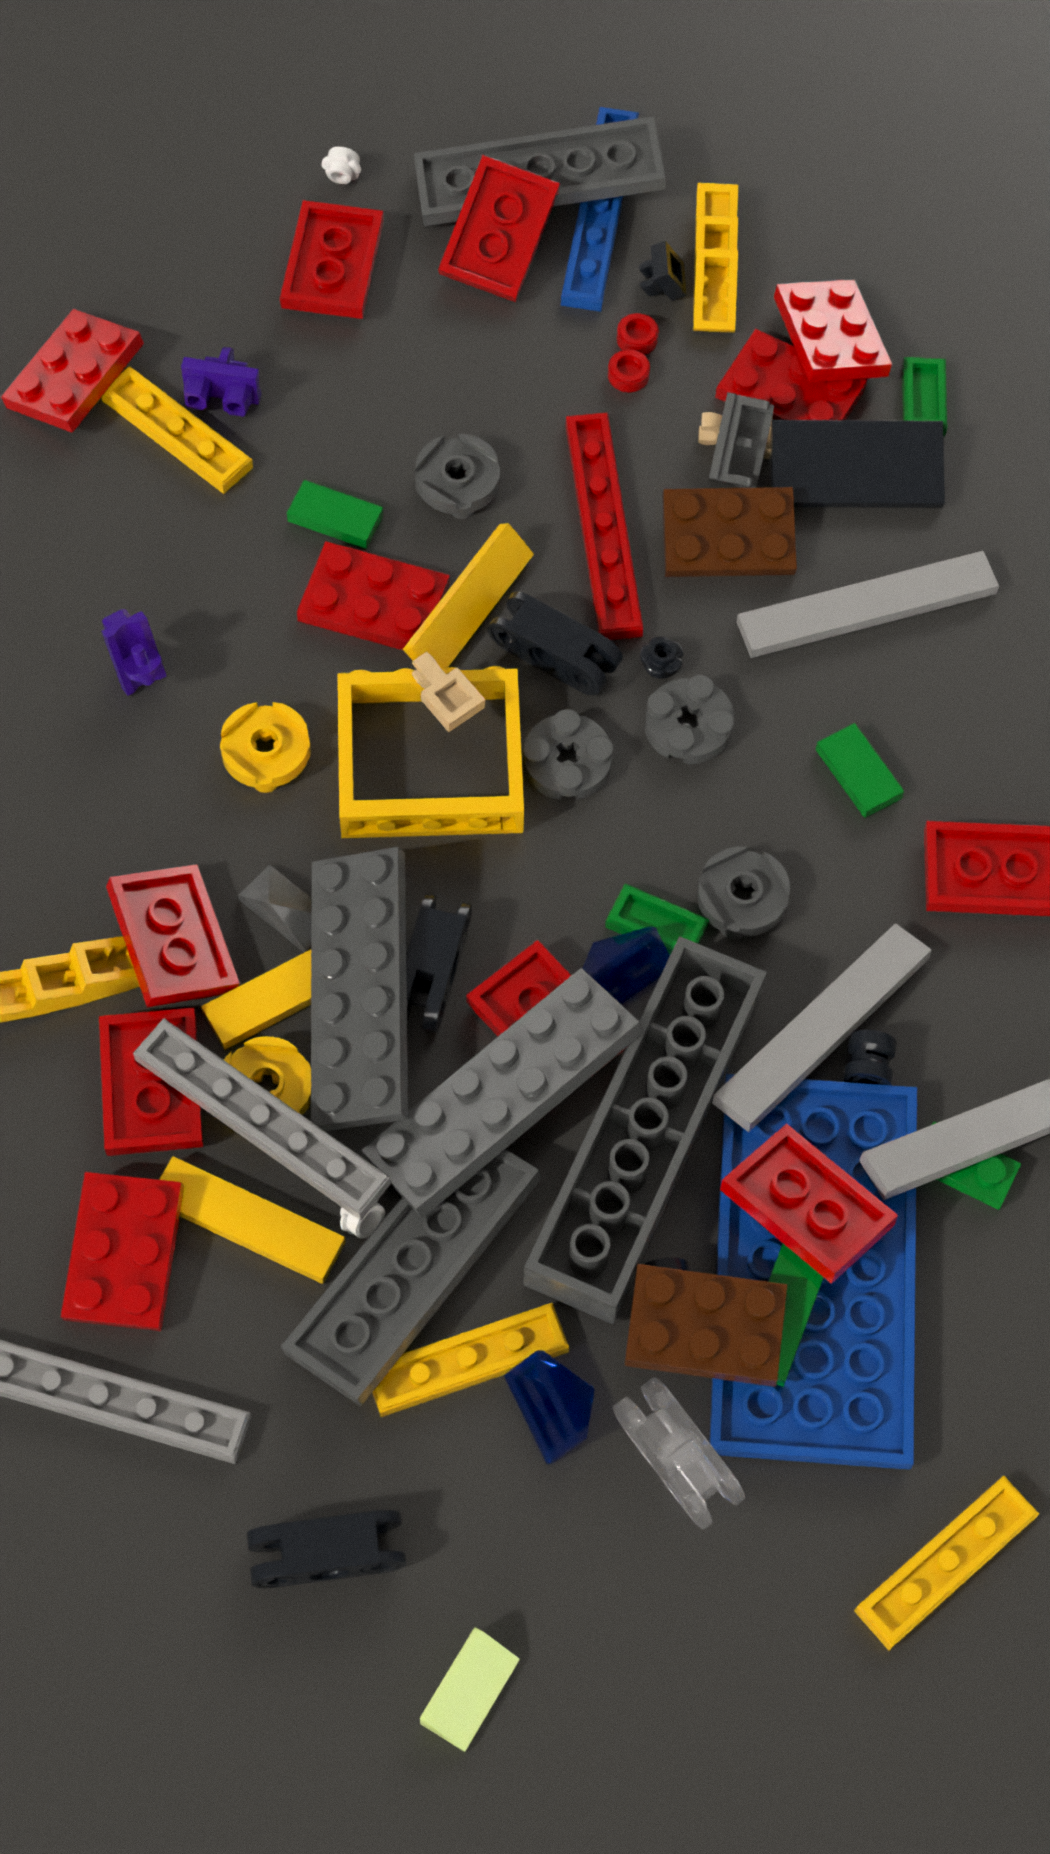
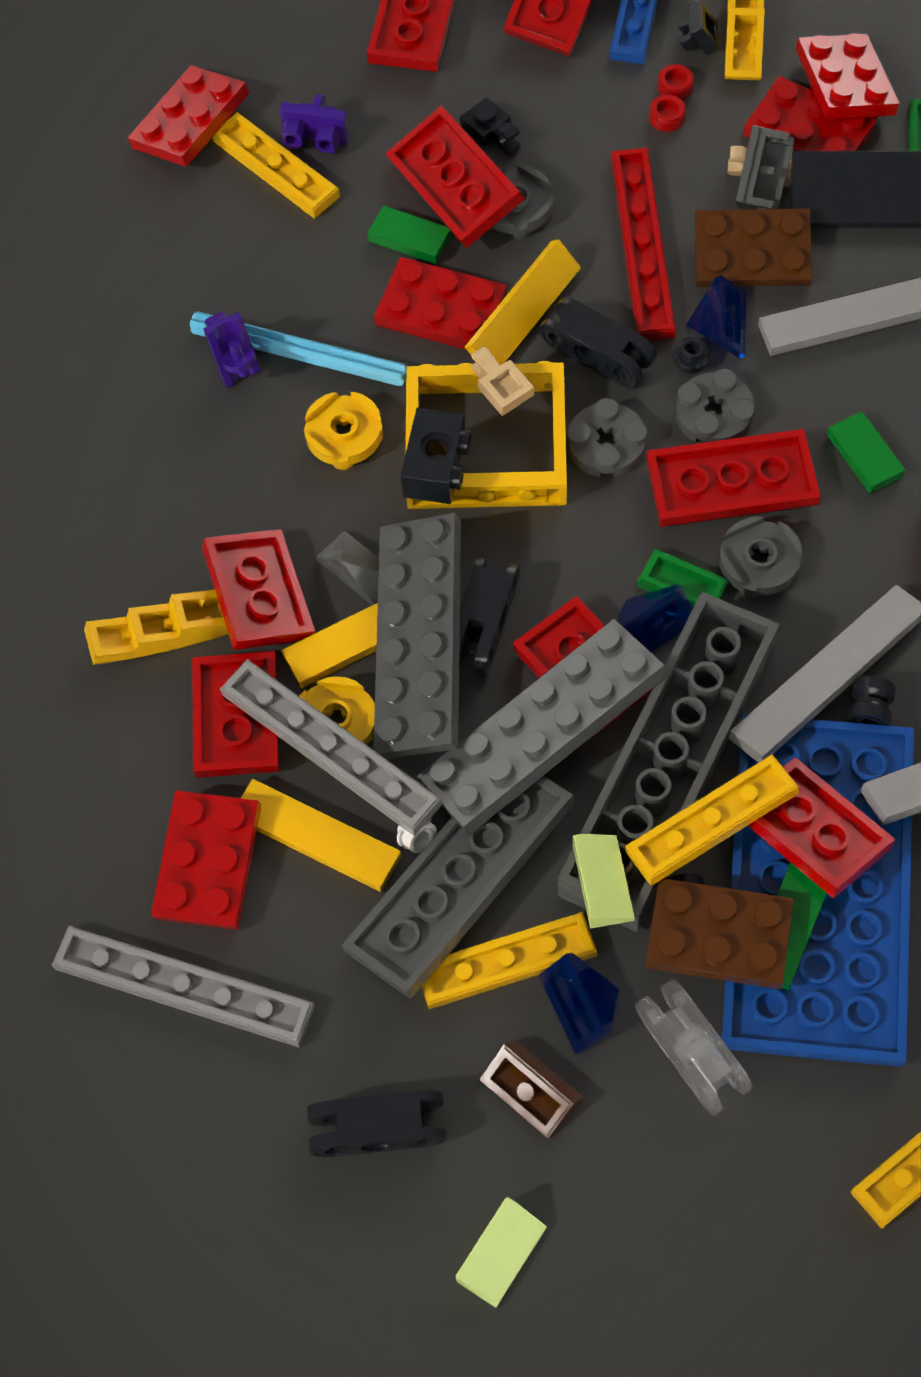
camera: 10 degrees right, 0 degrees up
(229, 654) = (316, 353): none -> medium azure axle
(368, 756) = (431, 435): none -> black brick
(386, 447) = (454, 176): none -> red plate
(426, 382) = (490, 123): none -> black plate
(498, 1503) = (531, 1088): none -> reddish brown slope
(575, 1267) = (602, 879): none -> yellowish green slope
(695, 1197) = (711, 819): none -> yellow tile
(696, 612) = (722, 316): none -> clear blue slope
(710, 801) = (732, 477): none -> red plate

